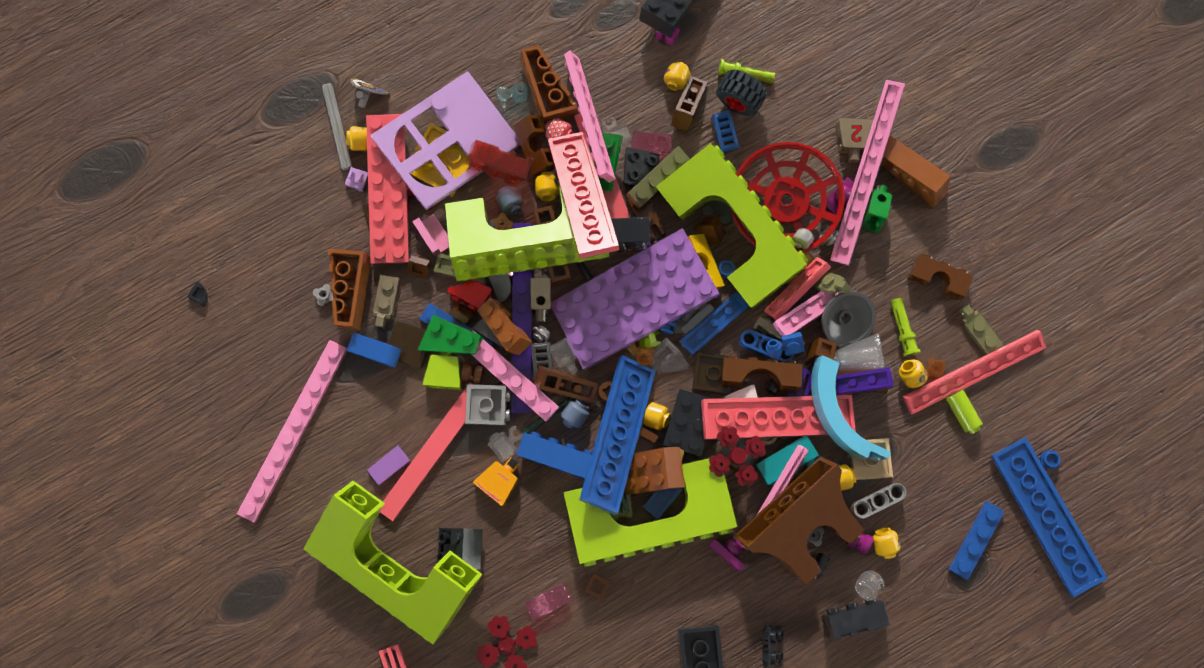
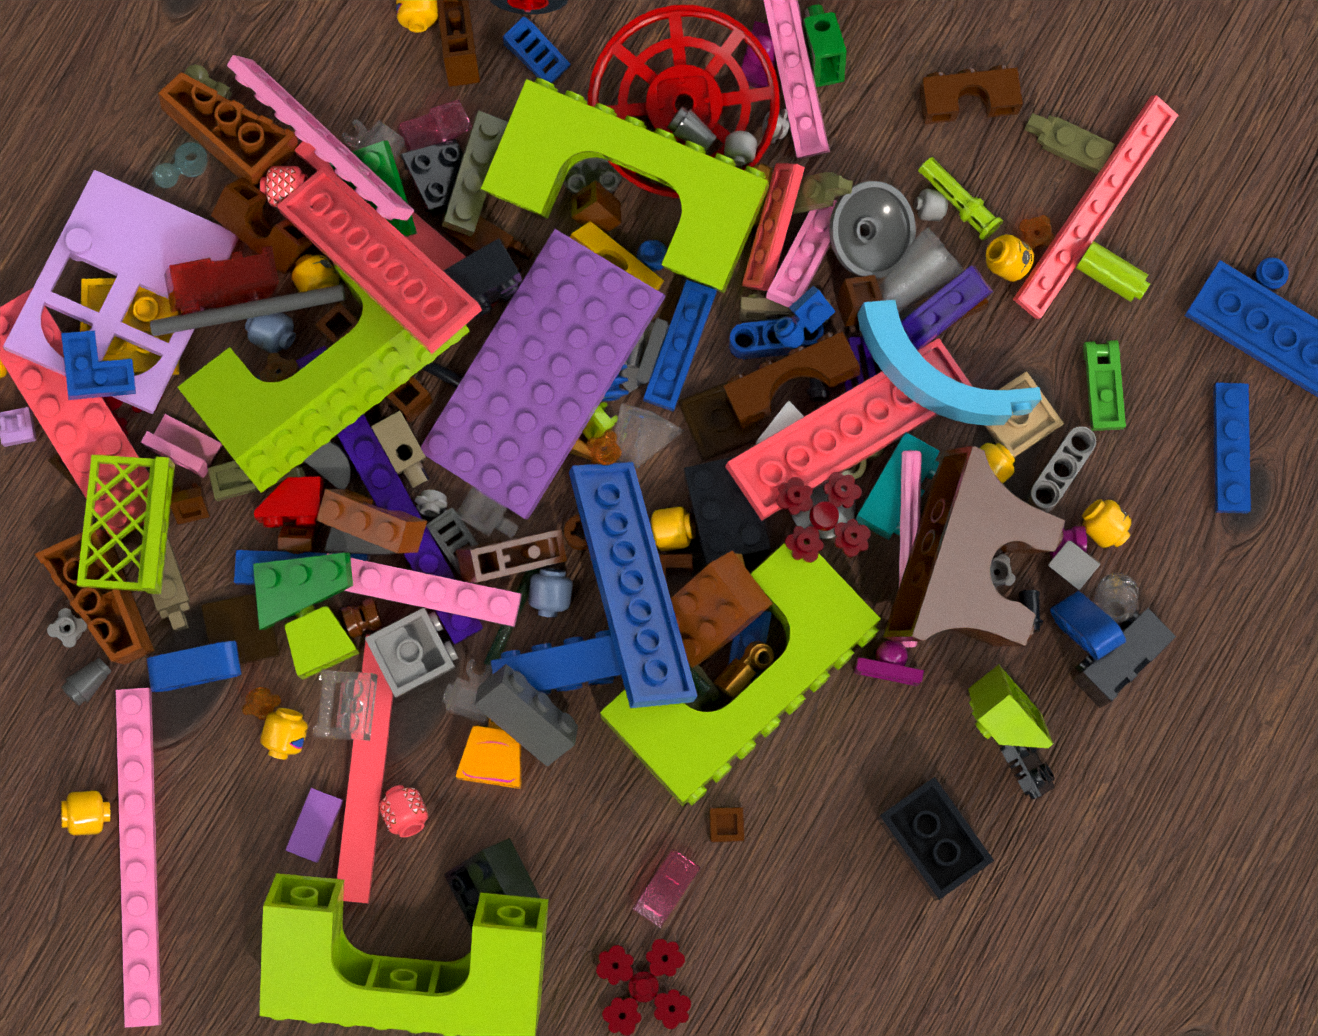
camera: 30 degrees left, 0 degrees up
(278, 393) = (84, 813): none -> yellow head
(317, 327) = (86, 681): none -> dark grey cone
(396, 264) = (155, 523): none -> lime fence
(397, 387) = (260, 703): none -> clear orange plate
(400, 409) = (284, 733): none -> yellow head
(404, 173) = (88, 376): none -> blue plate
(437, 484) = (403, 811): none -> coral head
(442, 416) = (354, 707): none -> clear plate
(503, 184) = (247, 310): none -> dark grey piece
(526, 471) = (526, 715): none -> dark grey brick
(548, 51) = (200, 74): none -> olive arm
(647, 512) = (739, 672): none -> pearl gold plate
(776, 614) = (1007, 712): none -> lime slope
(782, 214) = (689, 127): none -> dark grey cone
(845, 592) = (1087, 625): none -> blue beam
(856, 555) = (1074, 564): none -> light grey panel
(887, 323) = (931, 205): none -> light grey piece
(926, 469) = (1104, 386): none -> bright green plate

